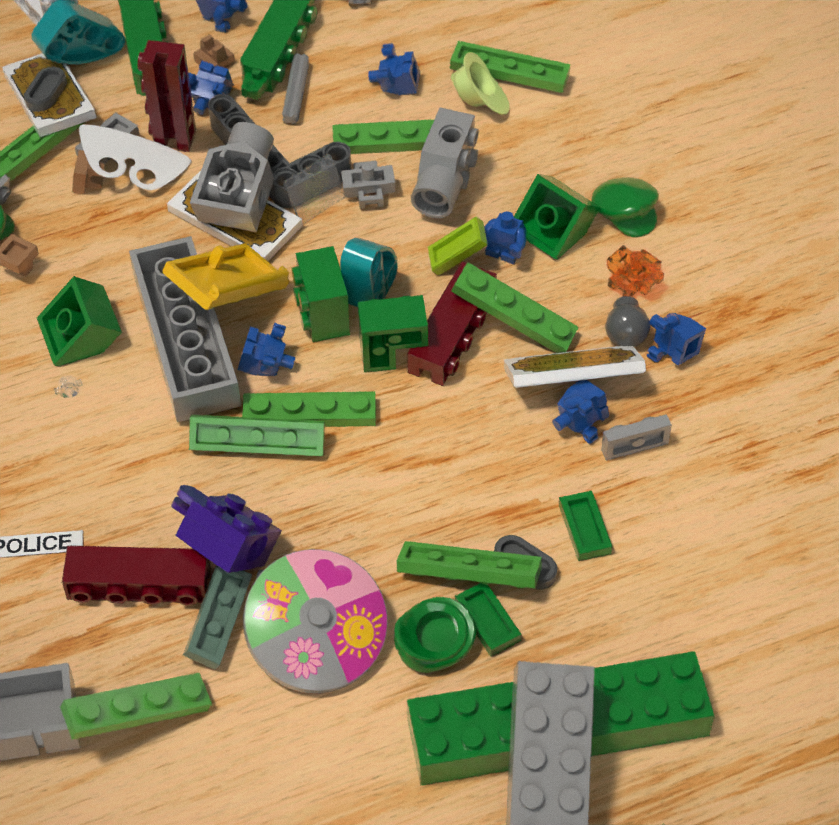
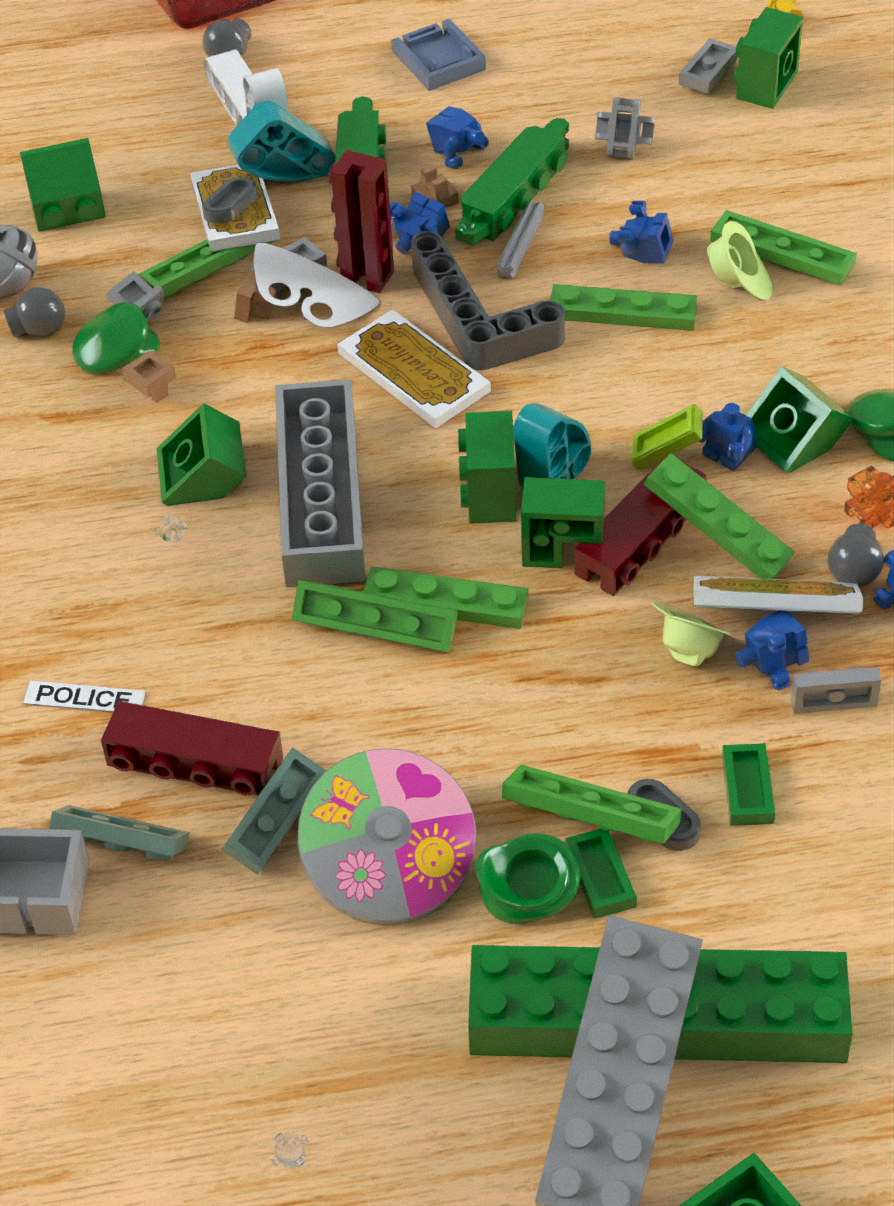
camera: 15 degrees right, 5 degrees down
(95, 655) = (121, 832): none -> sand green plate
(135, 705) = (148, 895): bright green plate -> none
(225, 275) = (380, 428): yellow container -> none
(225, 529) = (305, 713): dark purple brick -> none
(235, 179) = (419, 324): light grey brick -> none
(265, 352) = (406, 524): blue piece -> none
(315, 188) = (513, 350): clear window -> none
(368, 178) = (579, 348): light grey piece -> none
(445, 163) = (674, 341): light grey brick -> none
(512, 411) = (687, 635): none -> yellowish green piece

